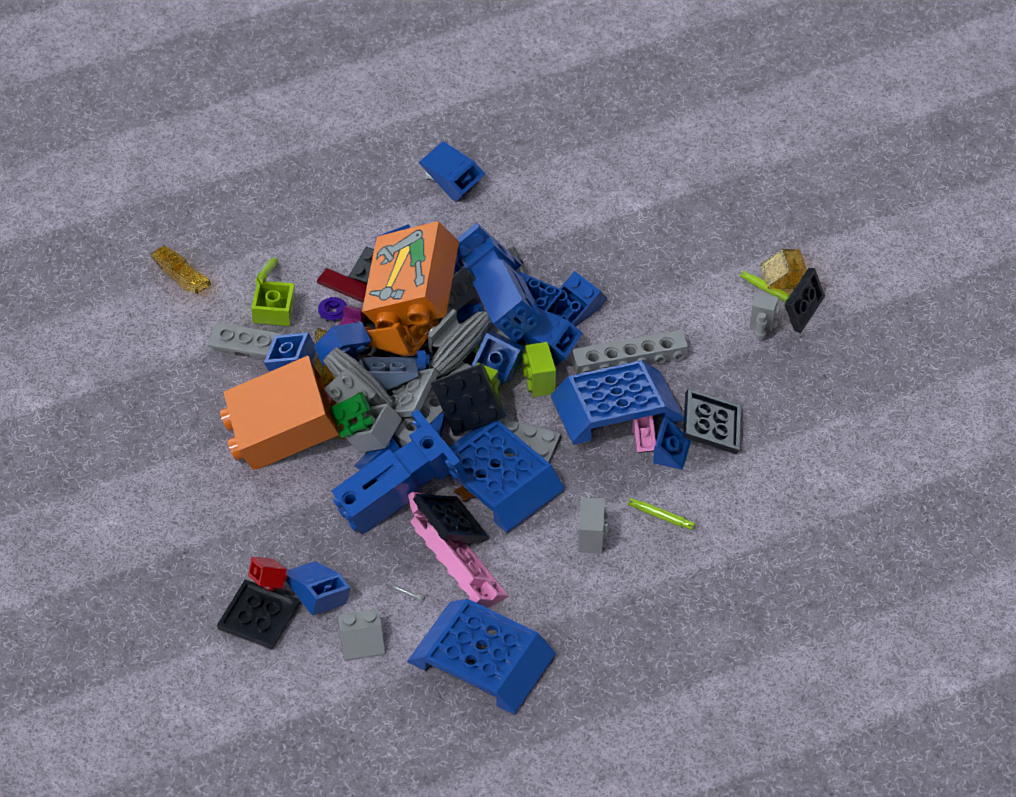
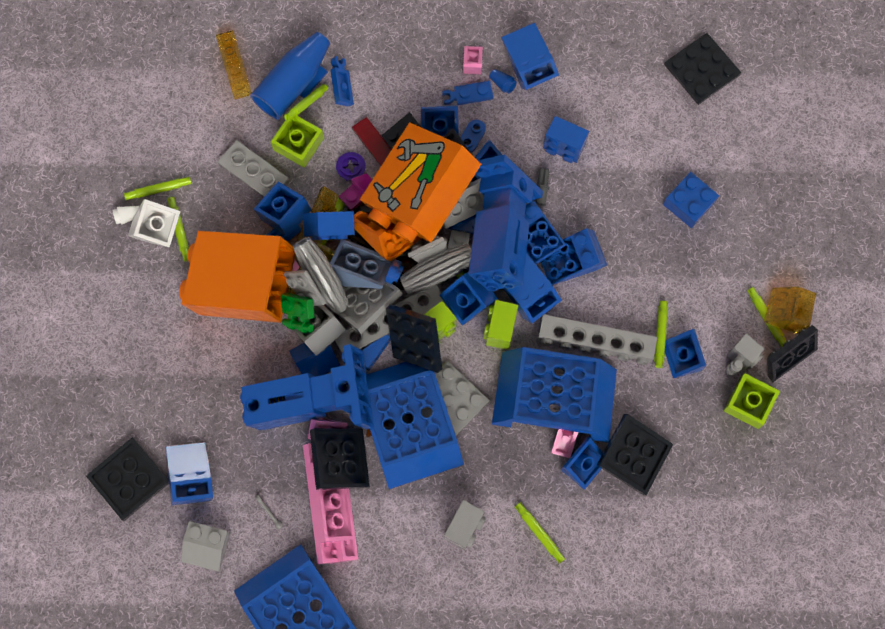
camera: 25 degrees right, 25 degrees up
(139, 417) = (124, 214): none -> white cone
(159, 388) = (157, 188): none -> lime piece
(173, 411) = (154, 223): none -> white slope
(197, 411) = (179, 231): none -> lime piece
(242, 256) = (292, 76): none -> blue piece
(267, 572) = (150, 445): red brick -> none
(288, 250) = (341, 82): none -> blue plate
(401, 193) = (472, 60): none -> bright pink slope
(414, 218) = (469, 93): none -> blue plate
(438, 199) = (503, 81): none -> blue cone
(518, 218) = (565, 140): none -> blue brick
(608, 133) = (702, 68): none -> black plate
(653, 226) = (690, 200): none -> blue brick
(680, 325) = (661, 334): none -> lime piece
(713, 336) = (684, 354): none -> blue slope
(789, 347) = (751, 401): none -> lime brick

